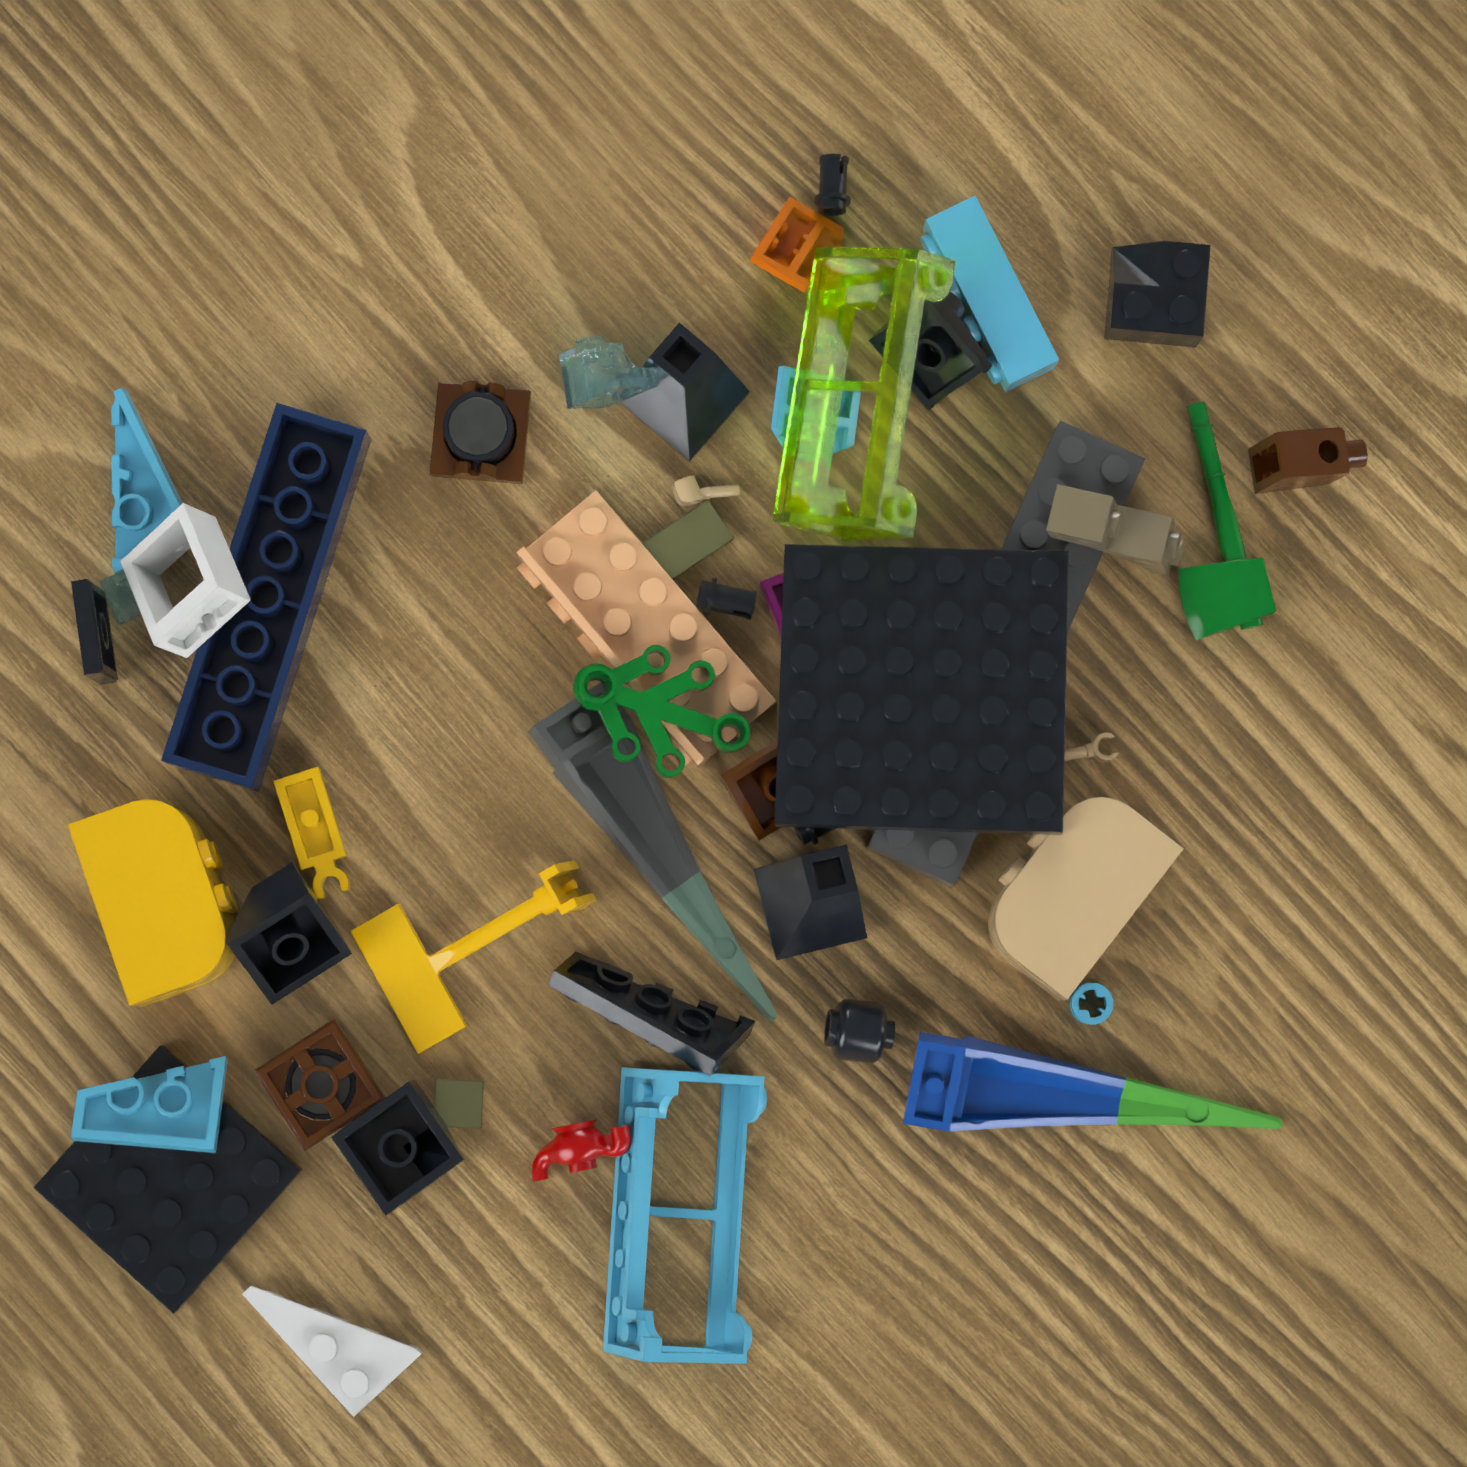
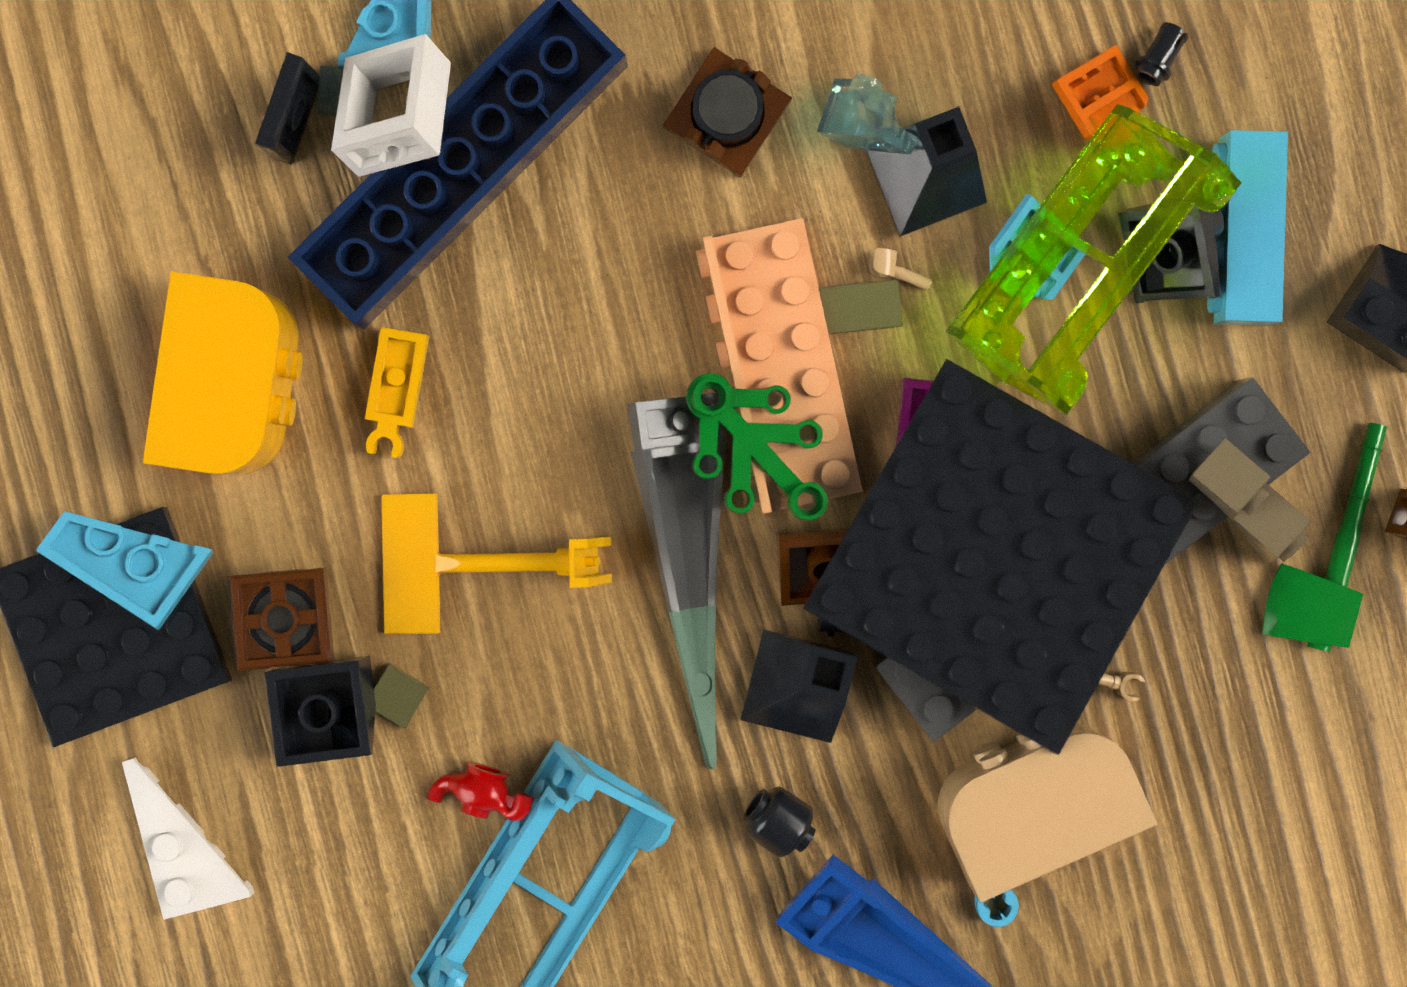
camera: 30 degrees right, 5 degrees up
(285, 934) = (318, 470): black slope -> none
(652, 1013) = (605, 708): black wing -> none
(726, 599) = (866, 377): black pin -> none

